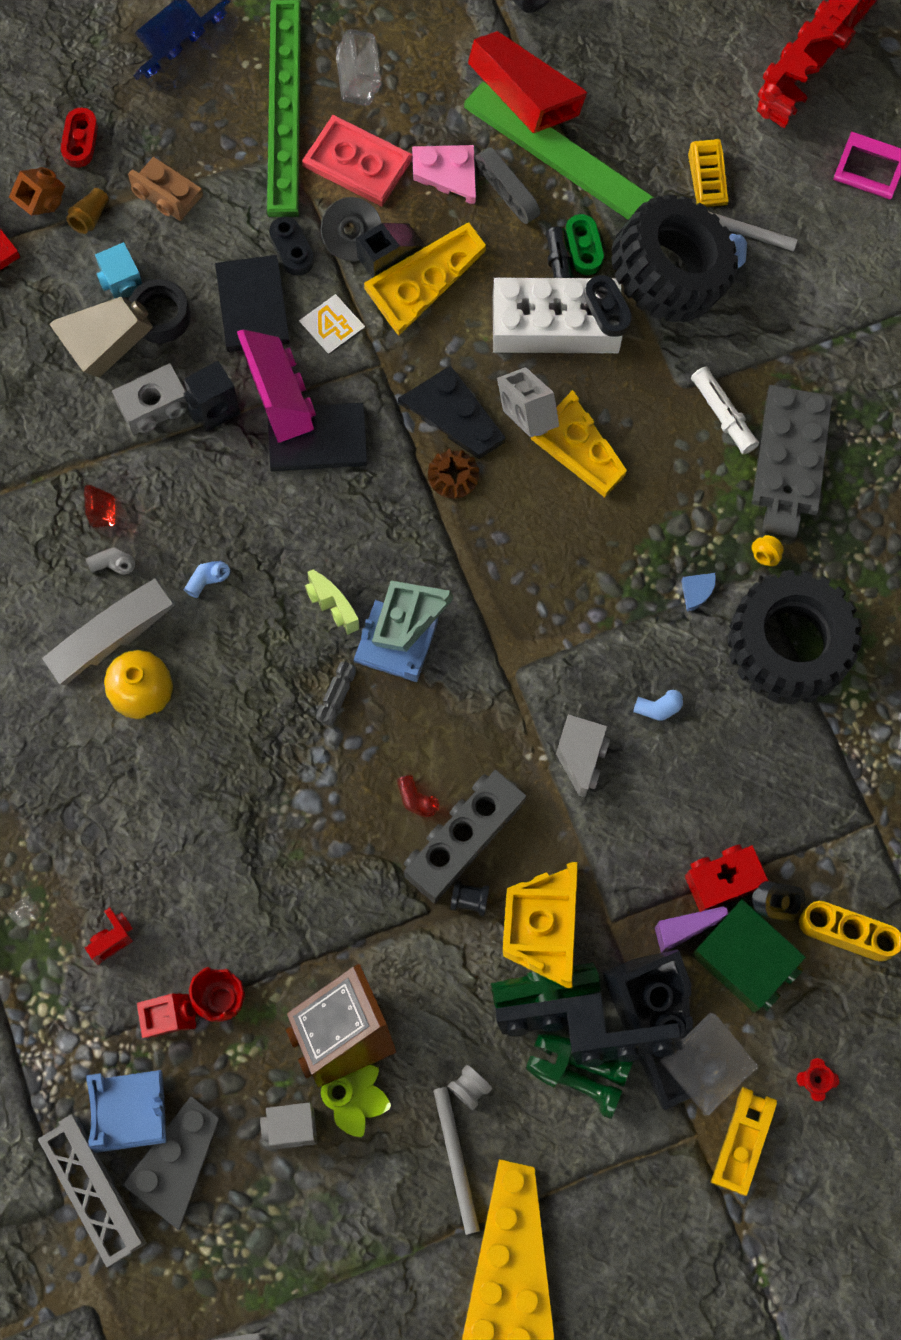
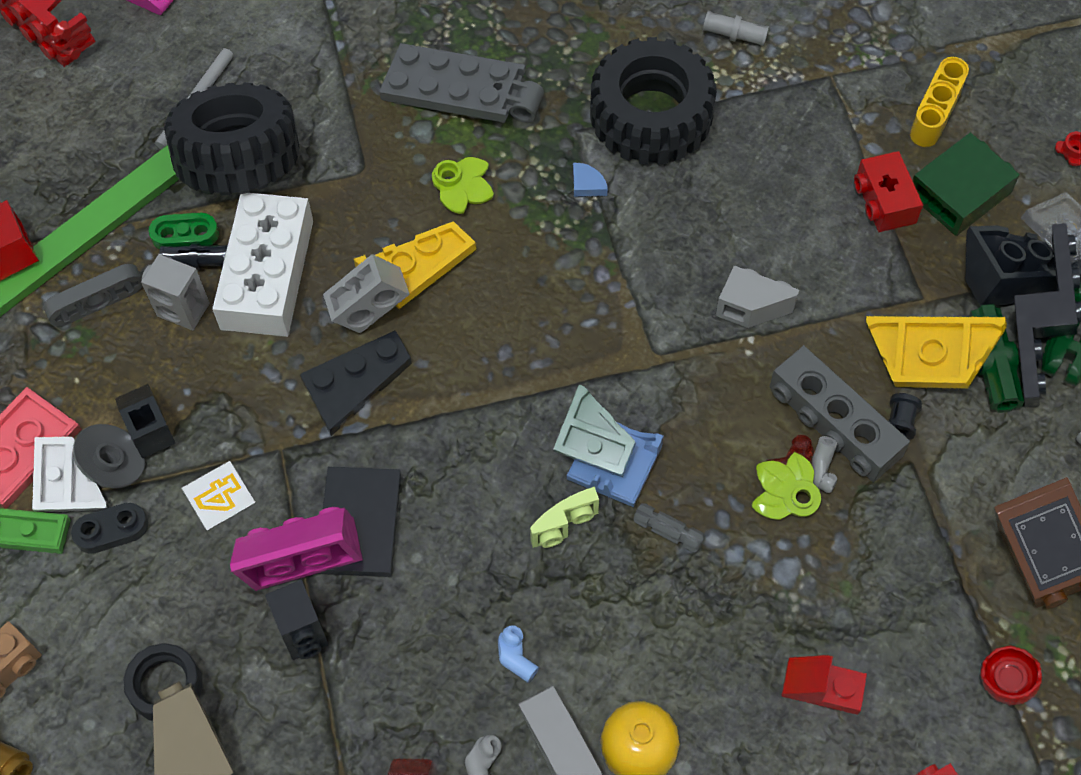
camera: 80 degrees left, 10 degrees down
(118, 271) = (100, 726): medium azure brick -> none
(158, 384) = (267, 681): light grey brick -> none
(166, 1015) = (1033, 735): red bracket -> none
(201, 836) = (820, 683): none -> red slope
(251, 299) = (174, 577): black tile -> none
(322, 191) = (59, 482): none -> white wing
(387, 789) = (781, 486): none -> lime plate
(409, 824) = (821, 462): none -> light grey arm
(420, 279) = (190, 398): yellow wing -> none
(443, 483) = (439, 394): reddish brown gear -> none
(446, 169) = (54, 355): bright pink wing -> none
(510, 245) = (175, 291): none -> light grey brick
(608, 308) = (277, 197): black plate -> none
(662, 708) = (710, 225): light blue arm -> none
(673, 479) = (466, 183): none -> lime plate
(682, 928) = (937, 233): medium lavender slope -> none
(708, 154) = (117, 102): yellow slope -> none
(731, 420) = (396, 133): white pin -> none
(767, 550) = (556, 115): yellow plate -> none
(779, 901) = (914, 149): black plate -> none

